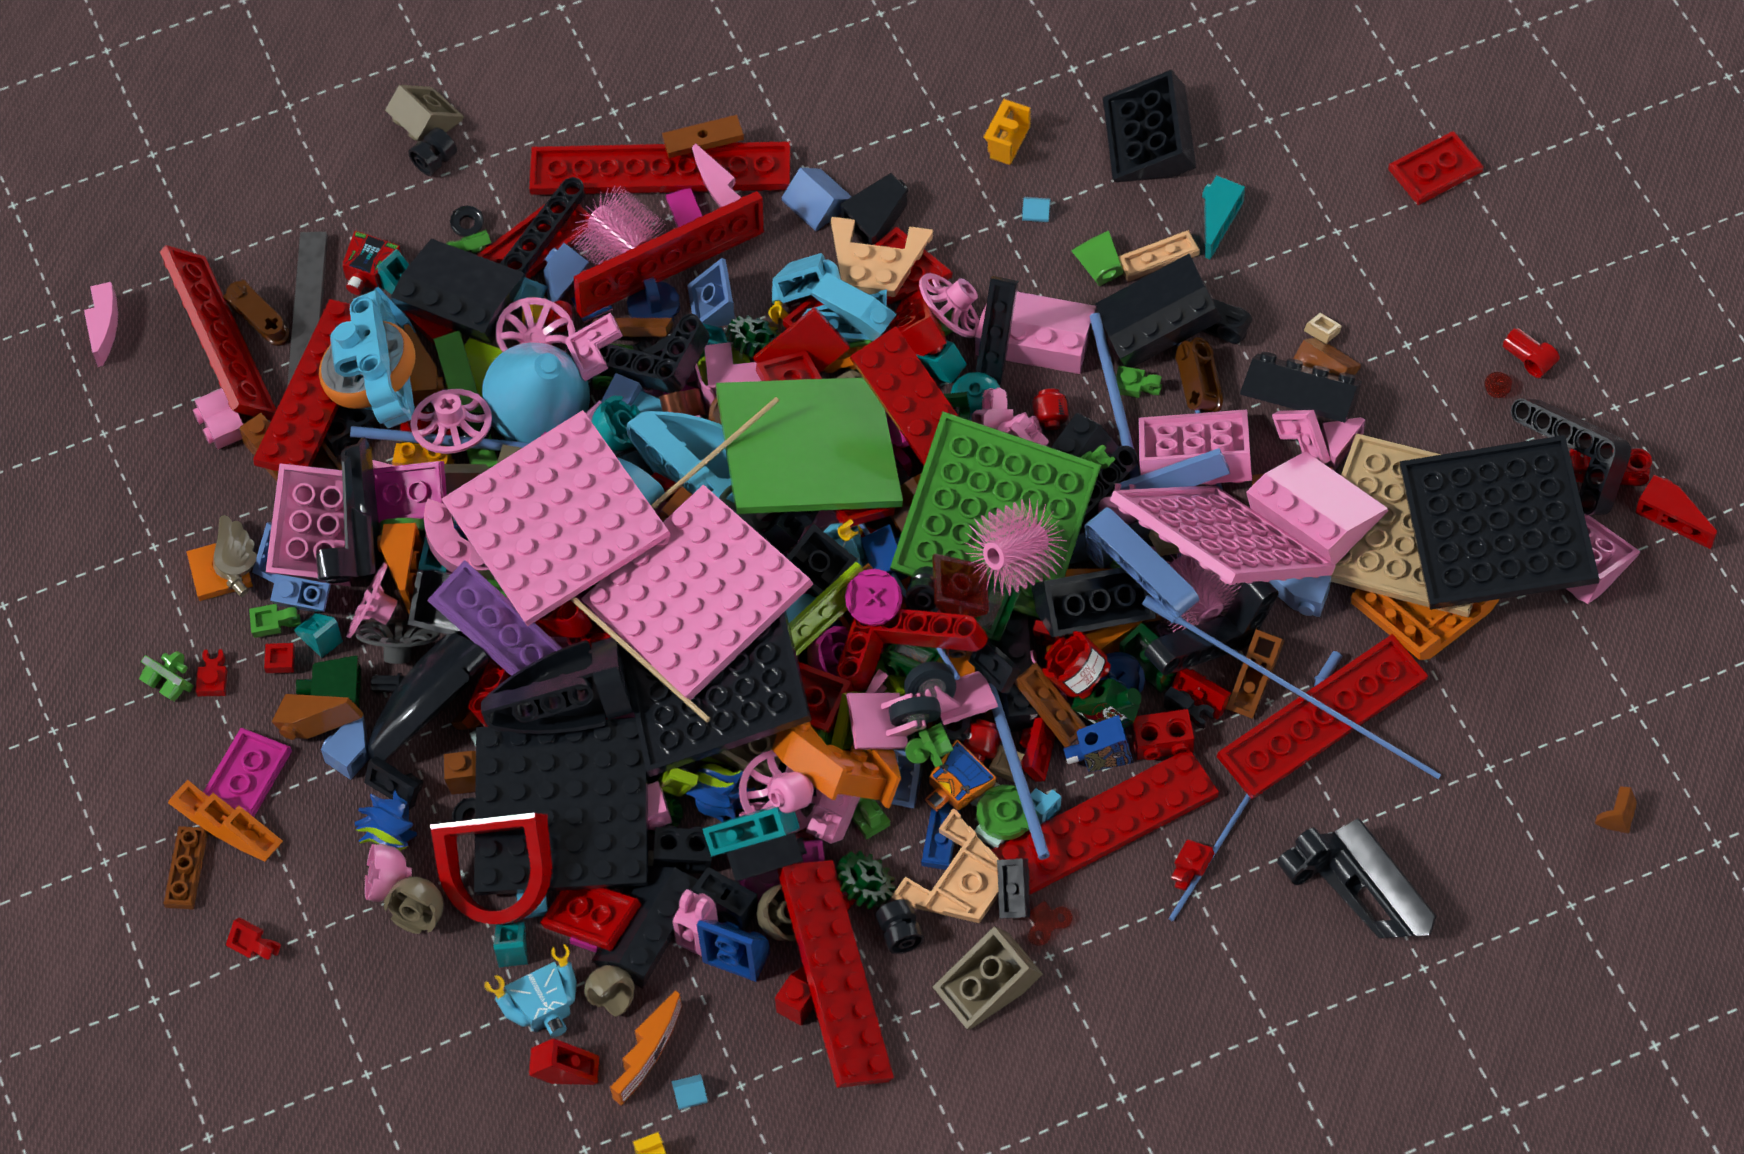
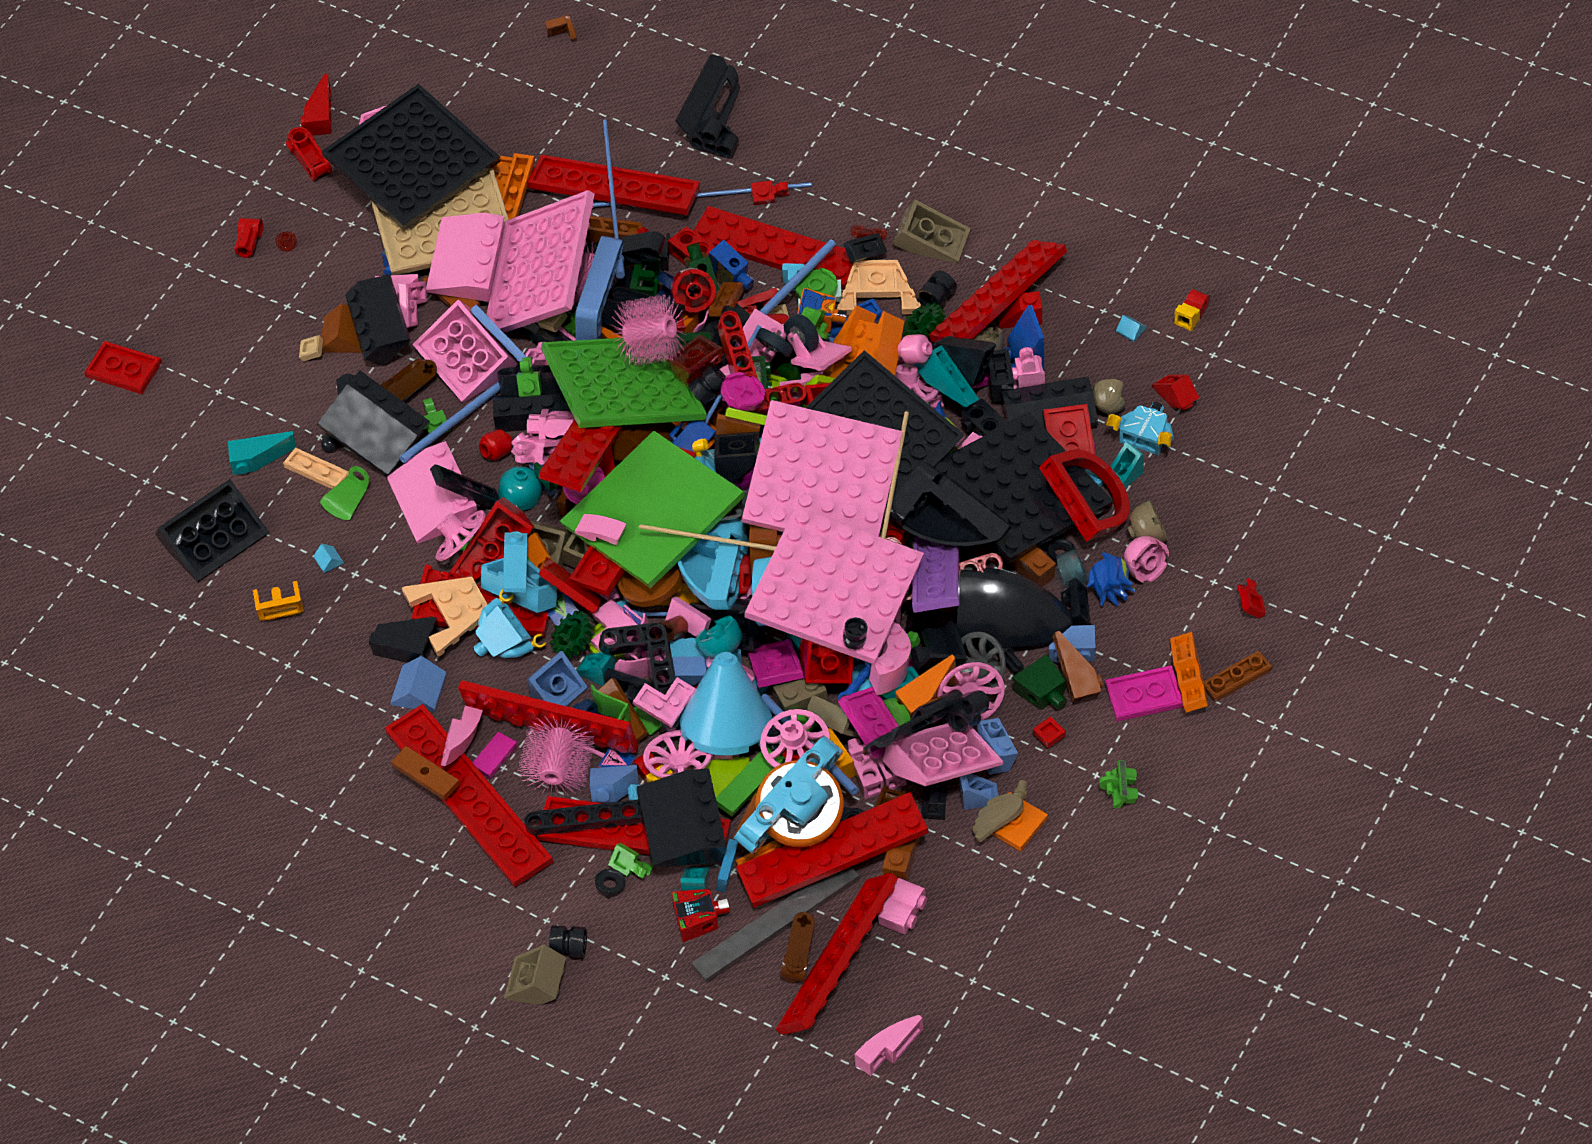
camera: 125 degrees left, 5 degrees down
(213, 677) = (1094, 763): red plate -> none
(269, 619) = (1028, 759): bright green plate -> none
(320, 633) = (1013, 718): teal slope -> none
(434, 801) = (1071, 567): none -> clear light blue hair
(470, 481) = (855, 633): none -> black wheel
(643, 303) = (611, 706): none -> bright green piece
(651, 1040) = (1118, 359): orange slope -> none
(818, 382) = (600, 527): none -> bright pink slope
(1596, 492) = (310, 142): black beam -> none

